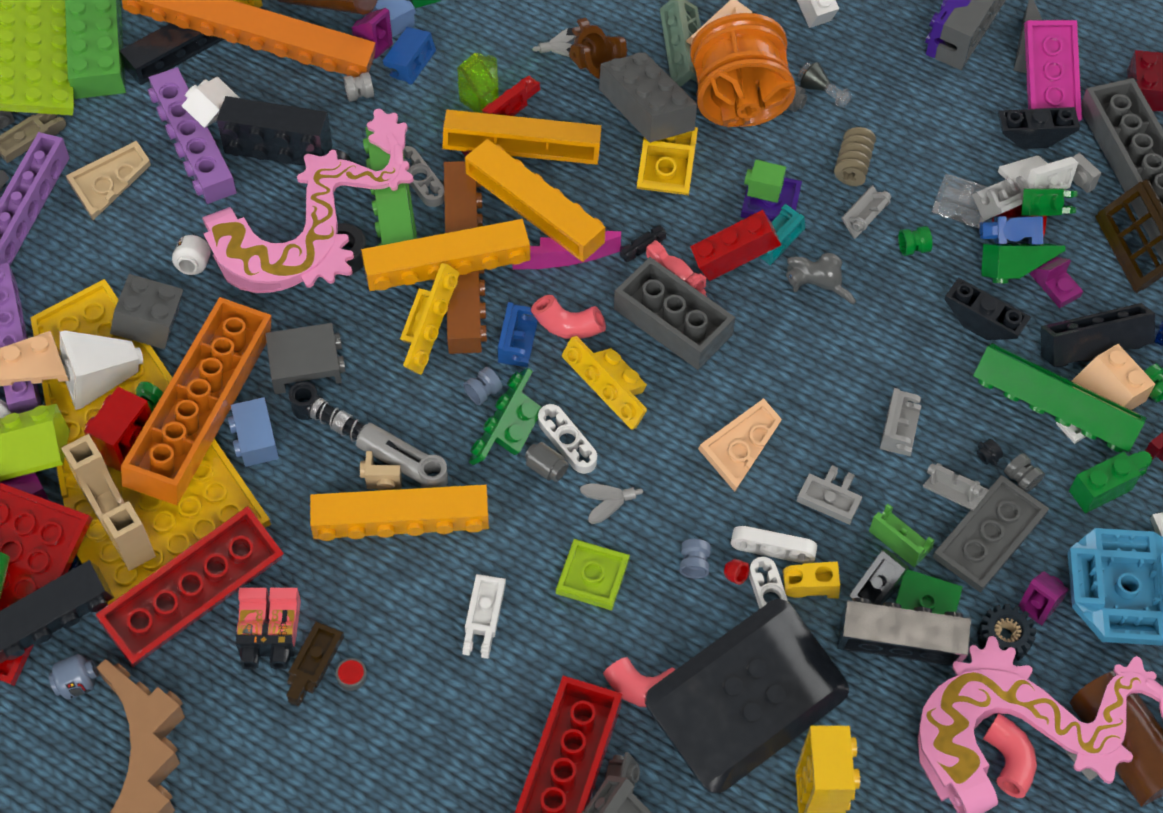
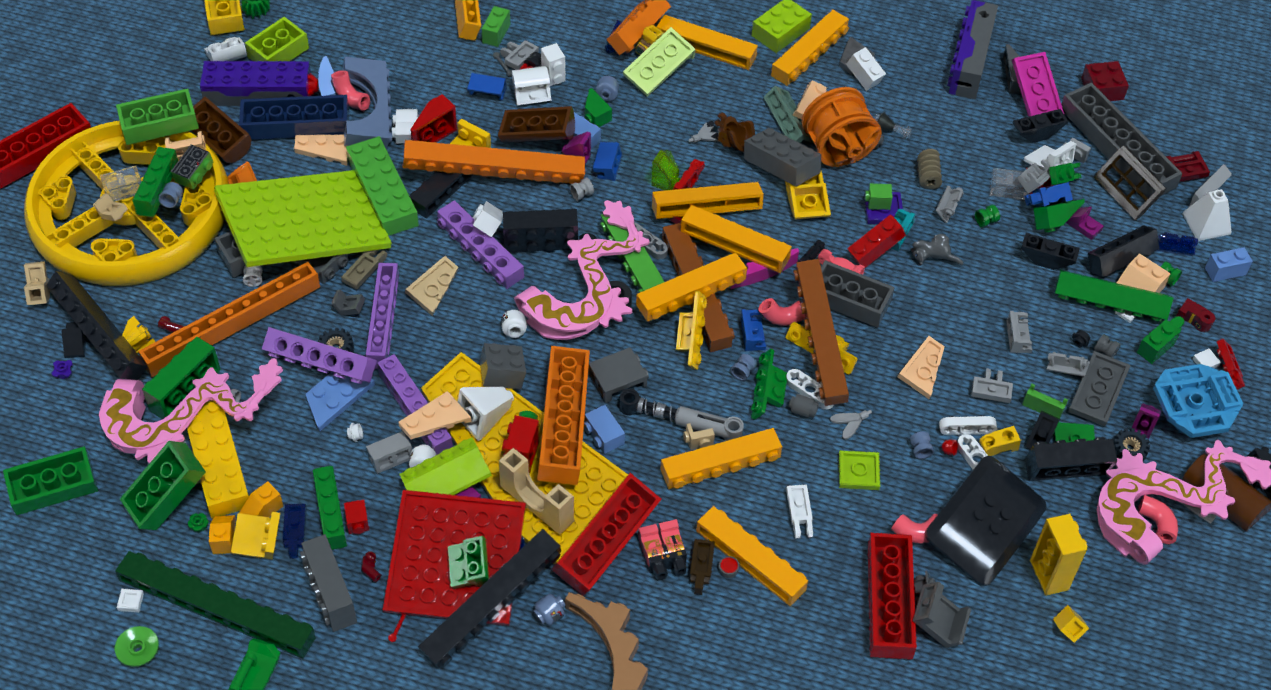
camera: 15 degrees left, 5 degrees down
(388, 667) = (752, 555): none -> light orange brick
(604, 361) = (822, 332): none -> dark orange brick

